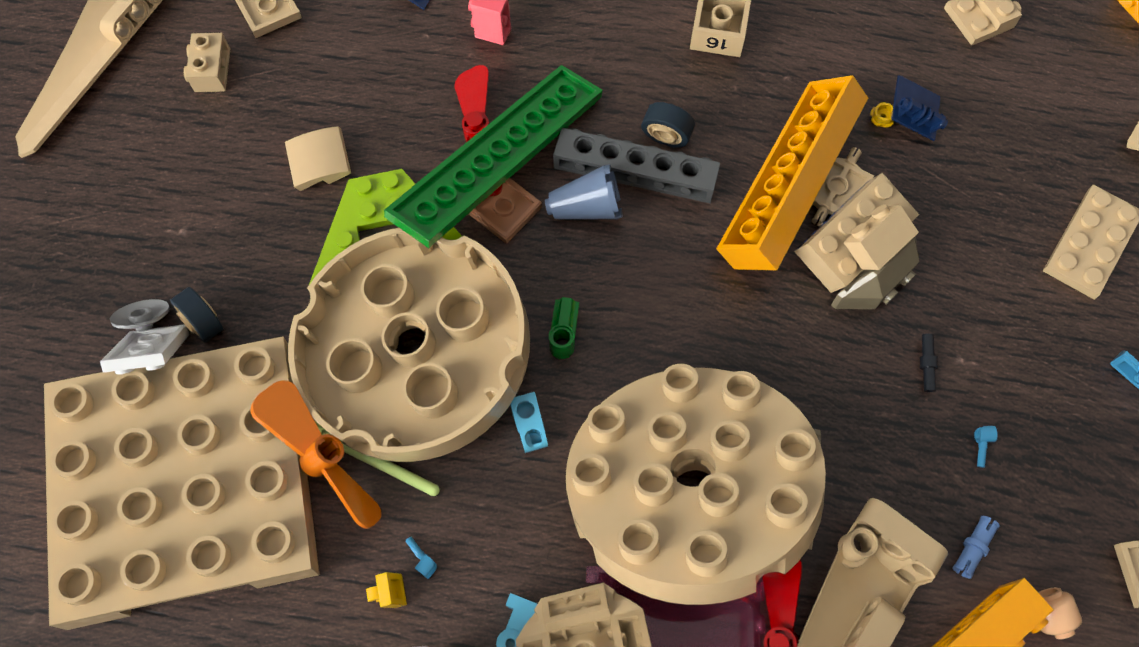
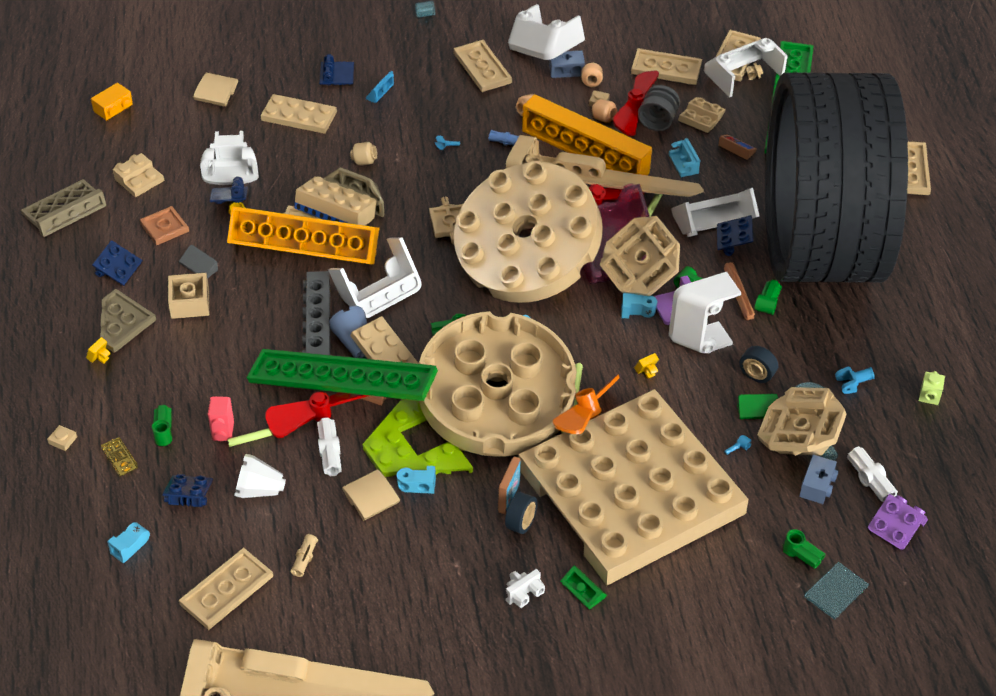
camera: 110 degrees left, 20 degrees down
(70, 363) = (583, 587): none -> green slope
(102, 286) = (523, 584): none -> white hips
(140, 314) = (526, 549): light grey dish -> none
(145, 349) = (558, 523): white plate -> none
(207, 62) = (309, 593): tan brick -> none
(242, 310) = (509, 485): none -> nougat tile
(254, 64) = (306, 549): none -> tan pin
(315, 215) = (417, 480): none -> medium azure leg
(387, 39) = (258, 479): none -> white cone
(412, 130) = (329, 447): none -> white piece
(426, 565) = (624, 355): dark azure hand -> none
(468, 49) = (249, 437): none -> yellowish green bar
(532, 224) = (381, 342): none -> tan plate
(663, 252) = (398, 285): none -> white windscreen
(668, 124) = (284, 304): black wheel -> none
(789, 53) = (198, 261): none -> dark grey slope
(801, 386) = (444, 219): none -> tan plate
(875, 28) = (164, 225): none -> nougat tile
(880, 236) = (346, 179): tan brick -> none
(928, 362) = (406, 169): black bar -> none
(973, 305) = (363, 153): none -> tan head
(981, 124) = (231, 160): none -> white piece

